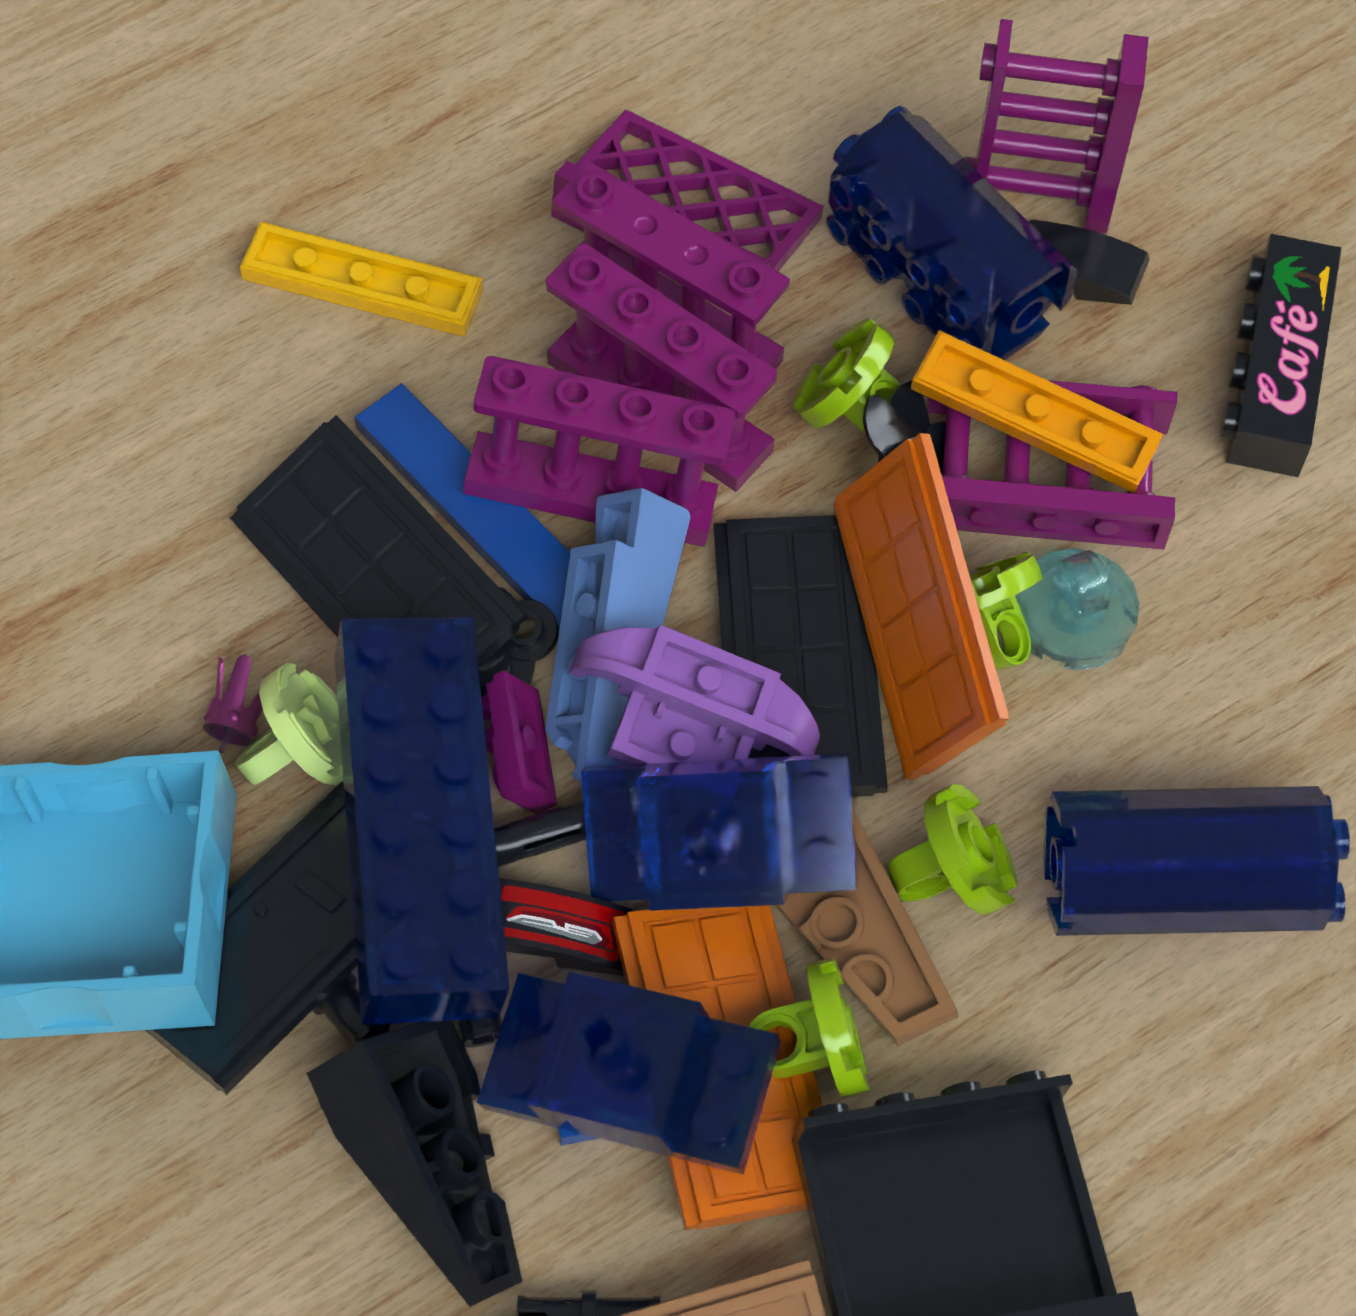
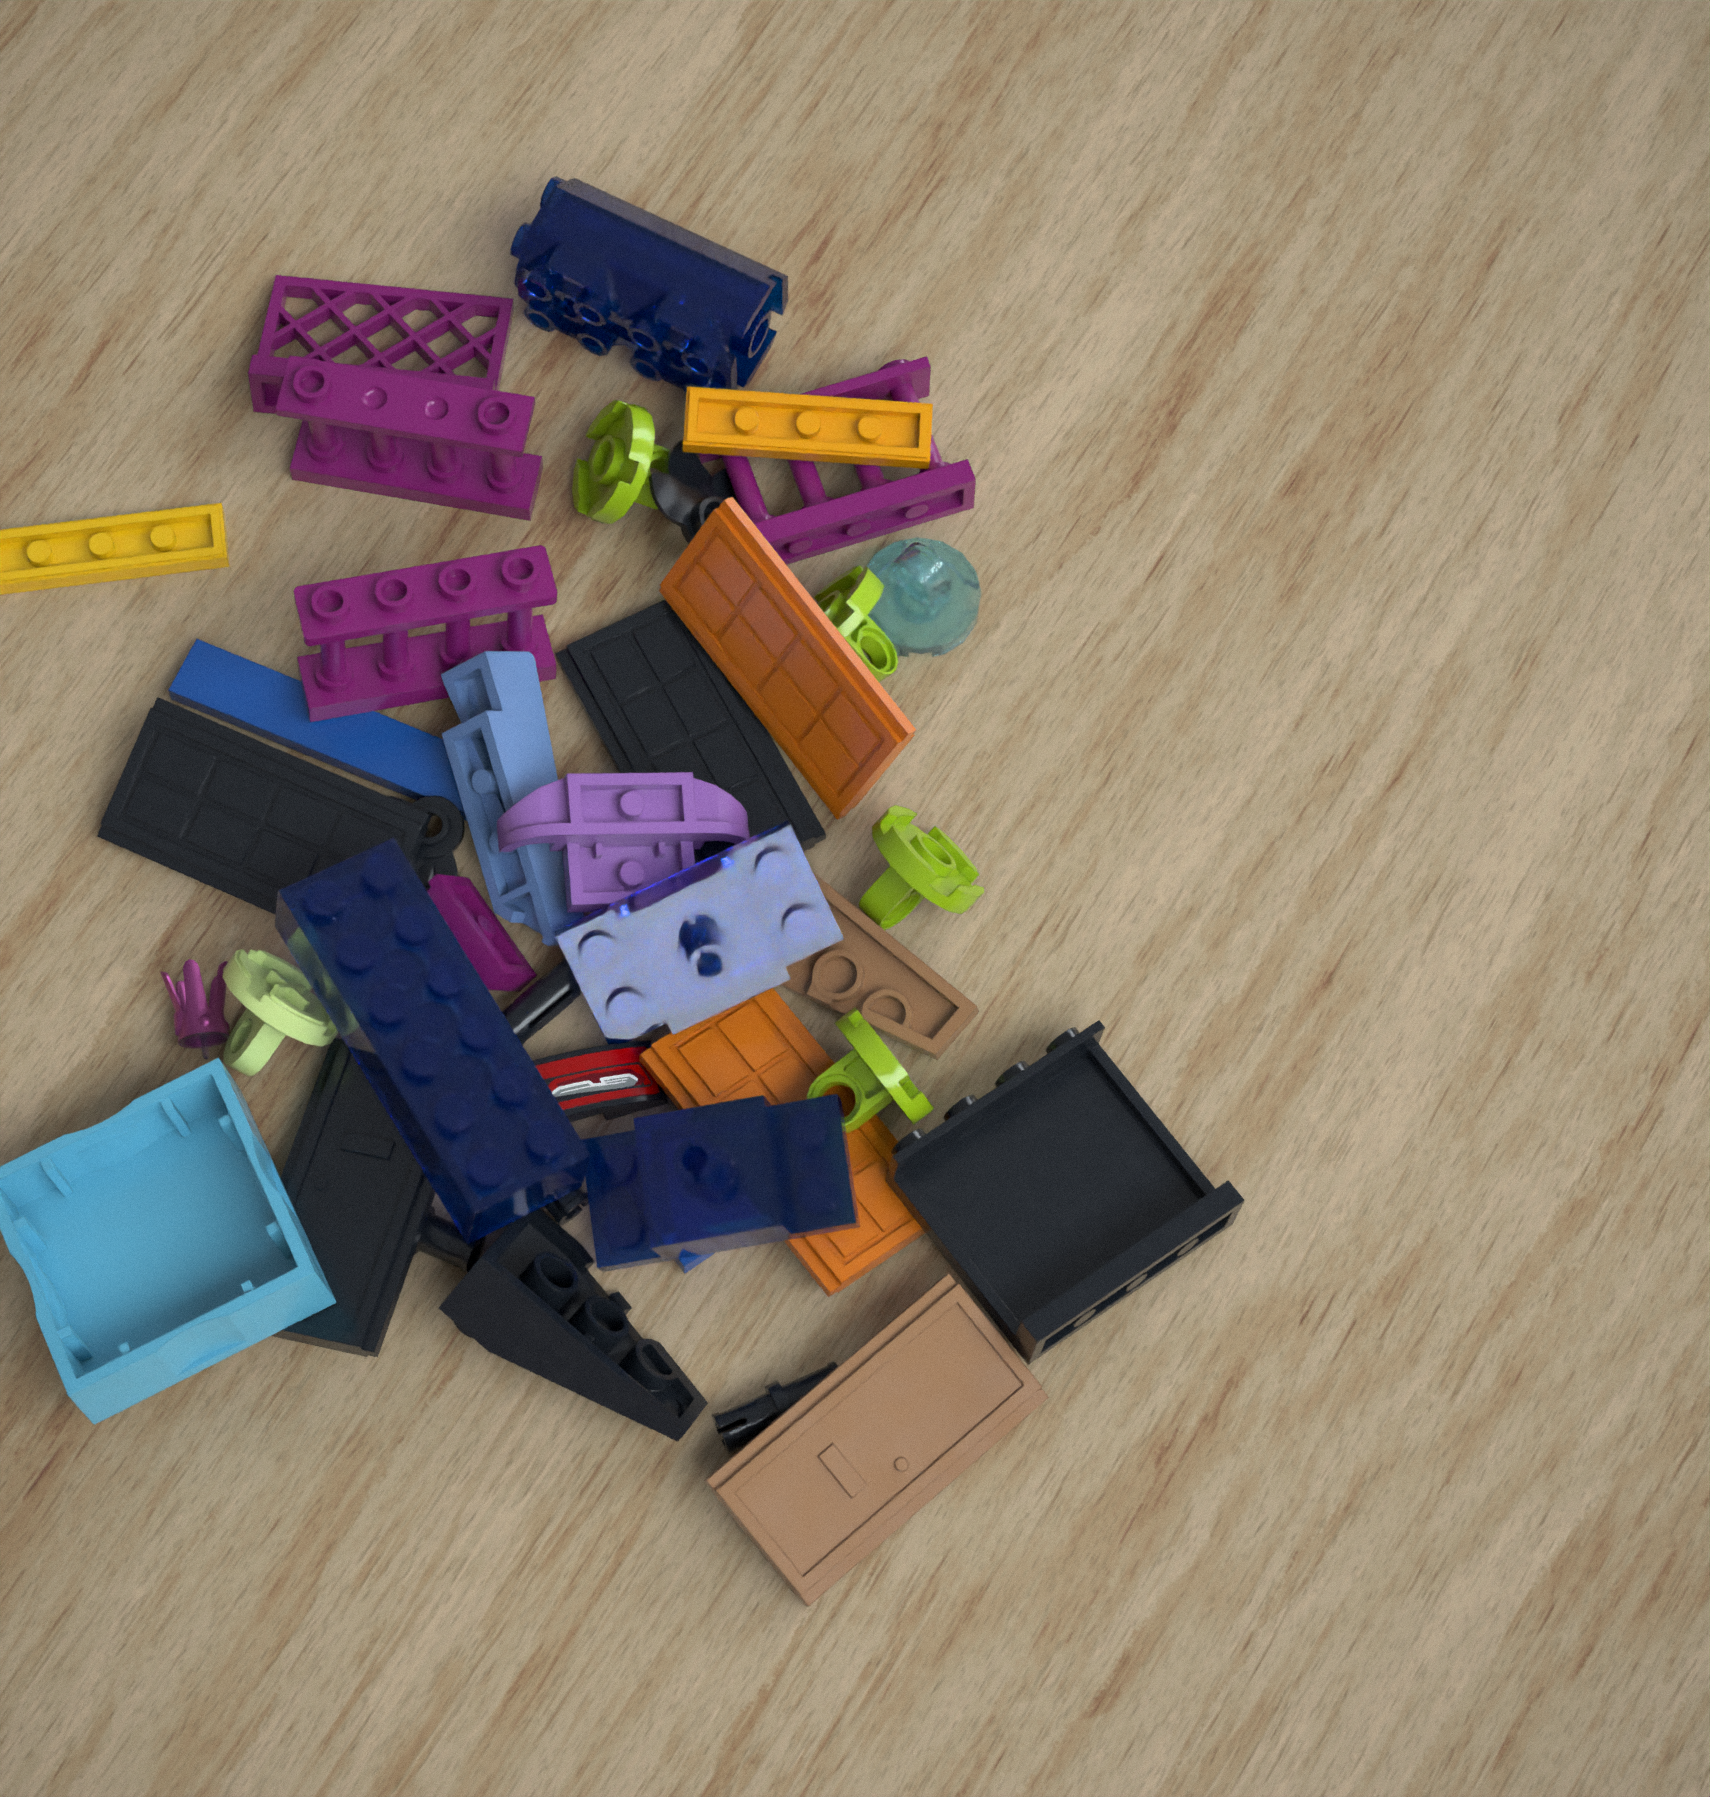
camera: 25 degrees left, 5 degrees up
(651, 343) = (420, 512): magenta fence -> none
(1105, 265) = (804, 252): black slope -> none
(1110, 117) = (761, 150): magenta fence -> none
(1194, 860) = (1123, 788): clear blue brick -> none
(1283, 355) = (1003, 277): black brick -> none

